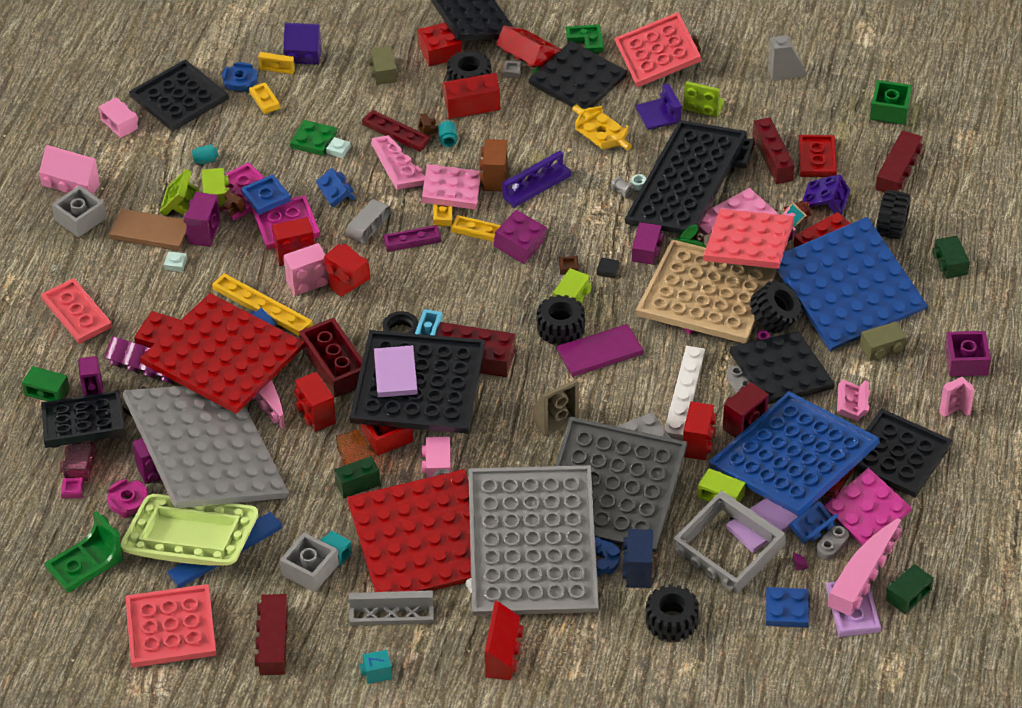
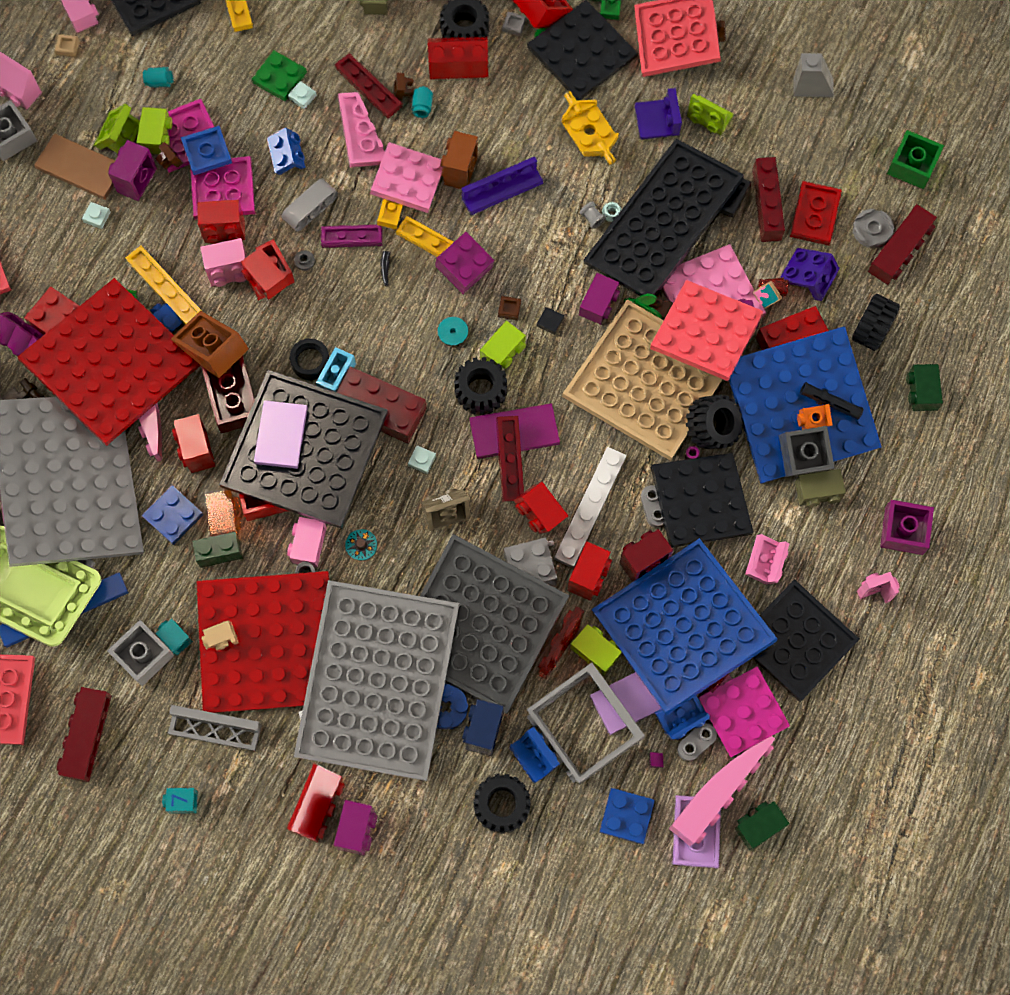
camera: 10 degrees right, 25 degrees up
(114, 147) = (66, 45): none -> tan tile
(307, 463) = (172, 515): none -> plate
(313, 321) = (210, 343): none -> dark orange slope
(375, 261) = (306, 265): none -> dark grey plate
(381, 528) = (219, 636): none -> tan brick
(447, 250) = (384, 263): none -> black helmet
(485, 456) = (361, 544): none -> piece
(523, 288) = (452, 331): none -> teal piece
(523, 384) = (422, 459): none -> light aqua plate
(545, 651) = (355, 828): none -> magenta brick
(603, 366) = (509, 457): none -> dark red plate
(641, 391) = (540, 508): none -> red brick
(690, 481) = (561, 641): none -> clear red plate
(691, 572) = (534, 755): none -> blue bracket
(850, 265) = (822, 396): none -> black pin
(862, 285) = (823, 415): none -> orange brick
(862, 309) = (806, 451): none -> dark grey brick
(869, 157) = (873, 228): none -> light grey tile

